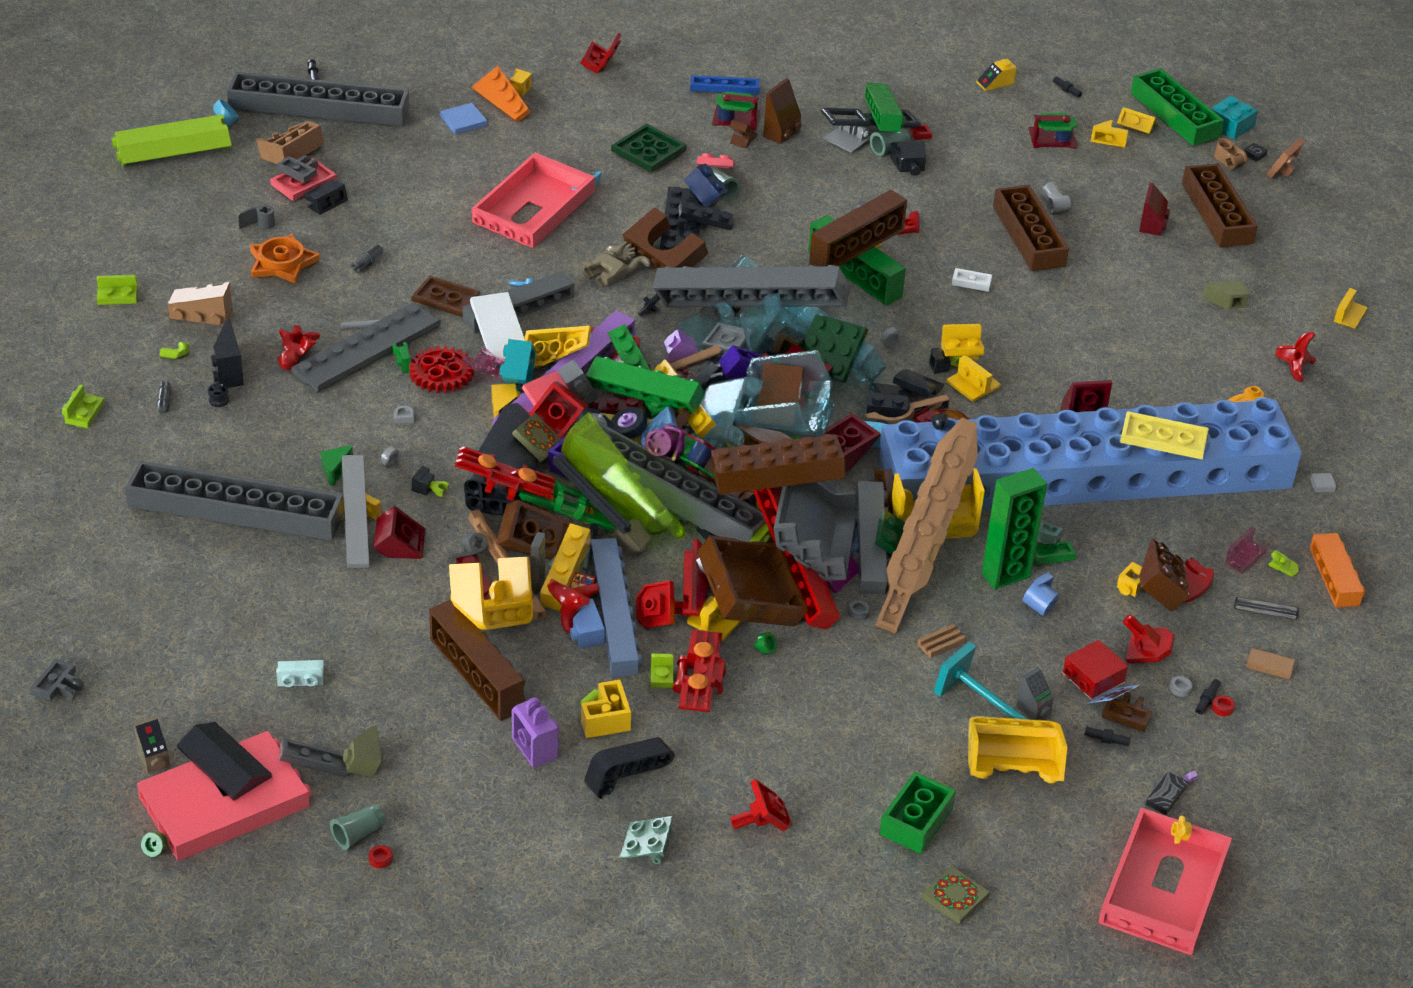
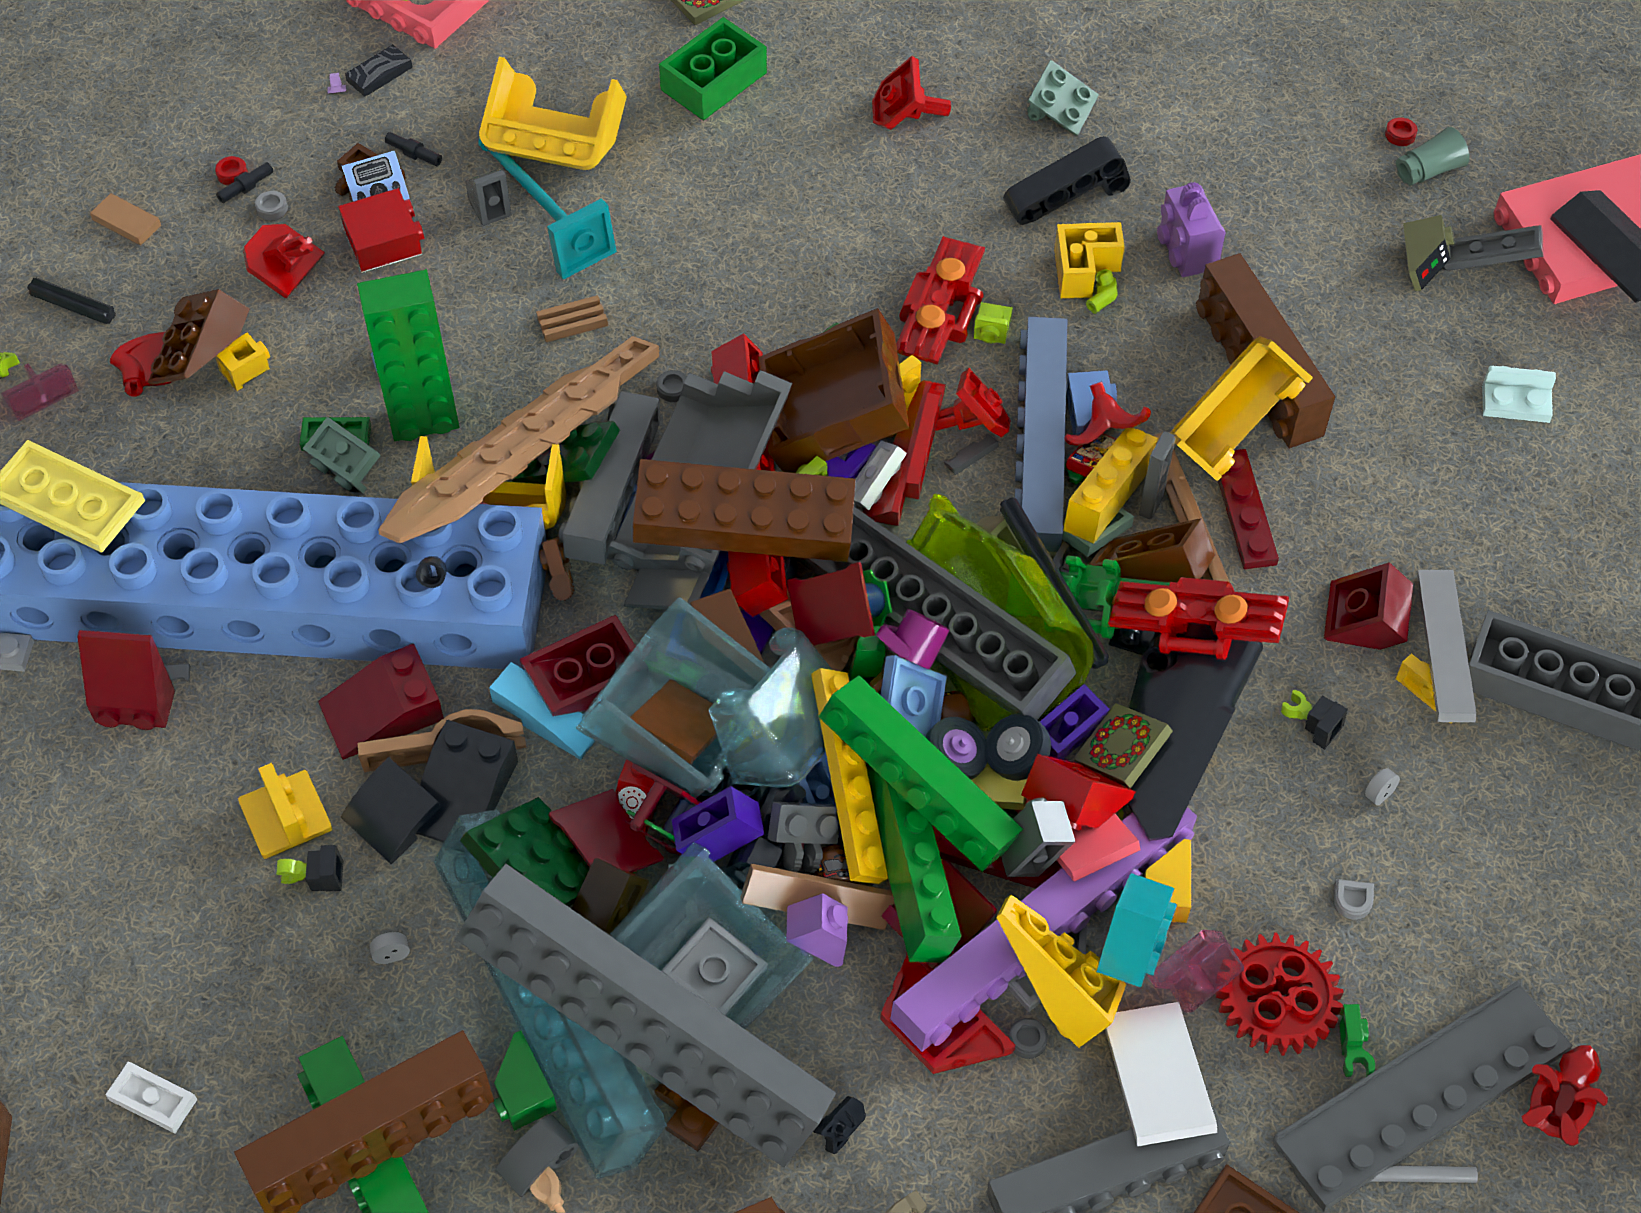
camera: 165 degrees left, 15 degrees up
(332, 462) = (1482, 783): green slope -> none
(469, 549) = (1264, 566): dark grey panel -> none
(962, 340) = (272, 871): yellow bracket -> none

